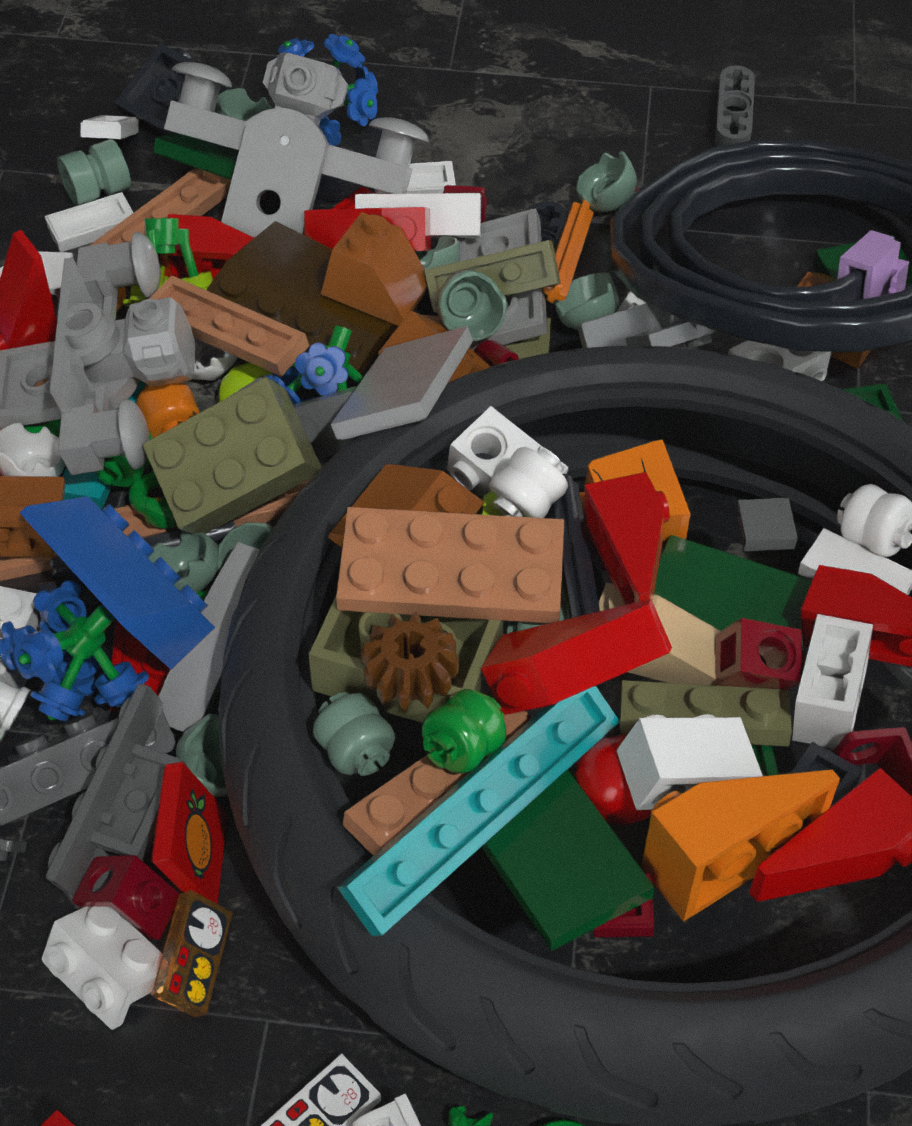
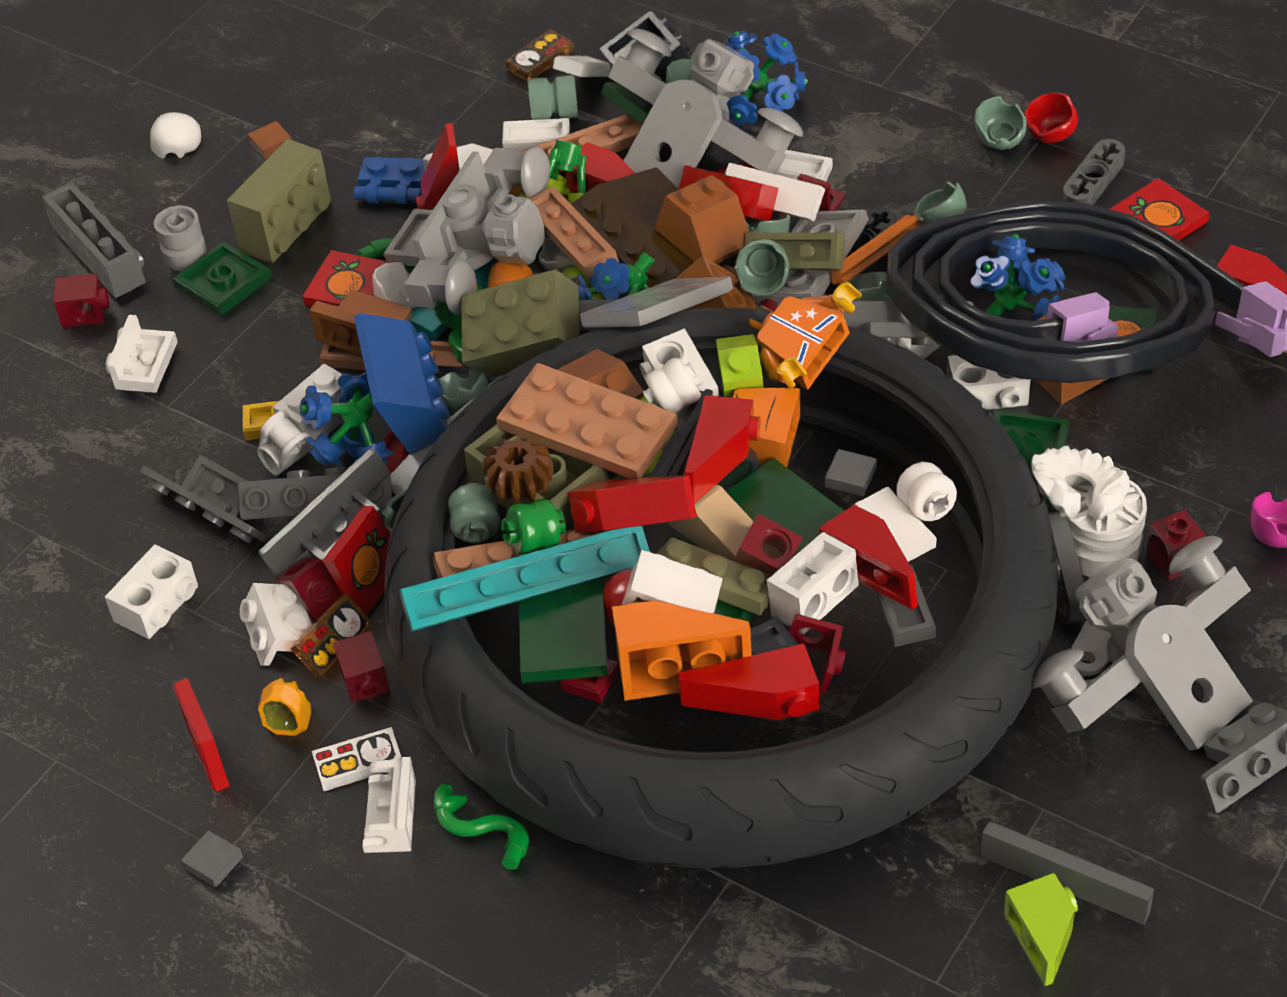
camera: 30 degrees right, 5 degrees down
(42, 128) = (538, 55): none -> tile
(187, 1084) = (284, 708): none -> light orange rock
(257, 984) = (361, 666): none -> dark red brick
(570, 430) = (739, 363): none -> lime slope
(611, 78) = (999, 123): none -> sand green hair
(627, 371) = (802, 334): none -> orange torso
(660, 57) = (1051, 117): none -> red hair
(729, 241) = (1014, 276): none -> blue plant
(828, 123) = (1164, 209): none -> red tile

